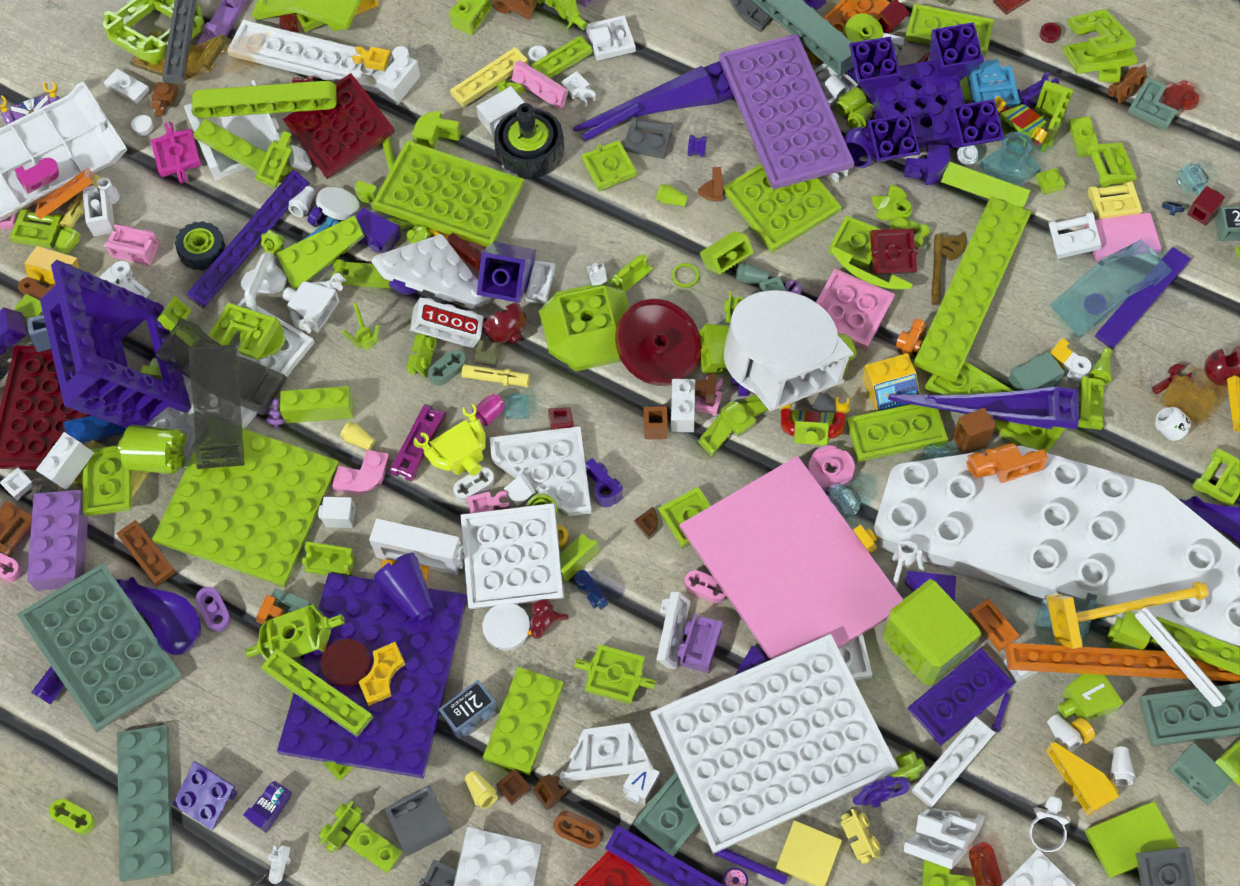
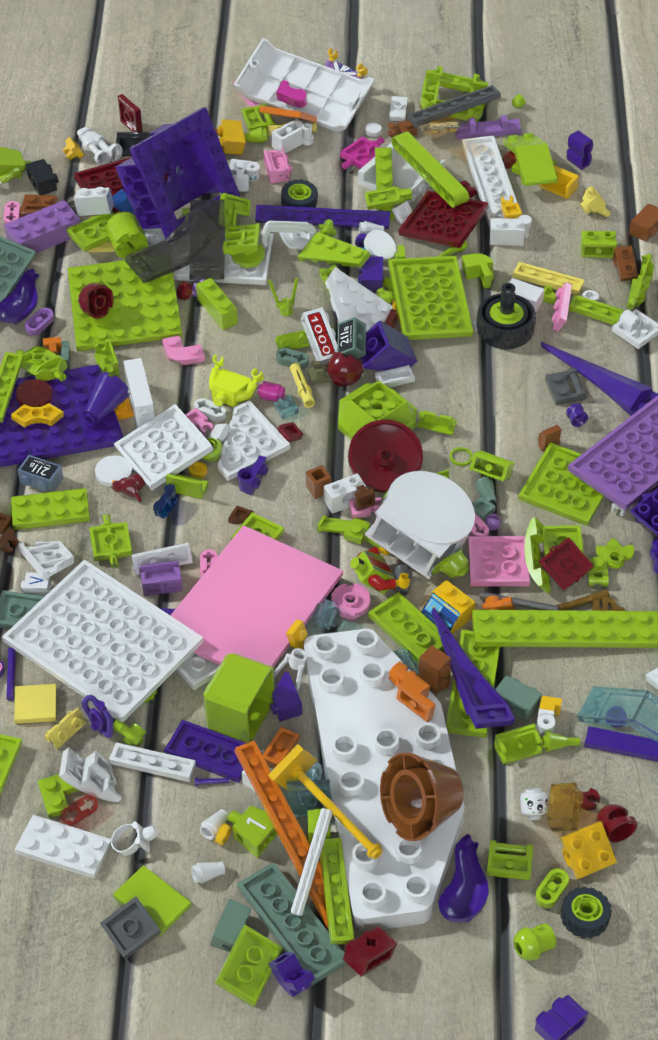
camera: 60 degrees right, 15 degrees down
(17, 483) = (68, 194): white plate -> none
(146, 553) = (59, 273): dark orange plate -> none
(238, 529) = (96, 300): none -> dark red cylinder
(272, 428) = (184, 291): none -> dark red tile
(313, 302) = (291, 266): white torso -> none
(337, 512) = (144, 348): white brick -> none
(357, 436) = (207, 334): light yellow cone -> none
(409, 451) = (203, 367): magenta plate -> none
(478, 294) = (352, 338): none -> sand green brick
(578, 87) = (577, 329): white plate -> none
(597, 273) = (423, 404): white piece -> none
(608, 165) = (522, 373): lime plate -> none
(611, 122) = (560, 359): dark purple bar -> none
(671, 196) = (521, 417): lime cone -> none
(920, 311) = (523, 603): none -> flat silver bar
(1085, 781) = (178, 854): yellow slope -> none
(1168, 517) = (419, 795): none -> dark orange cone

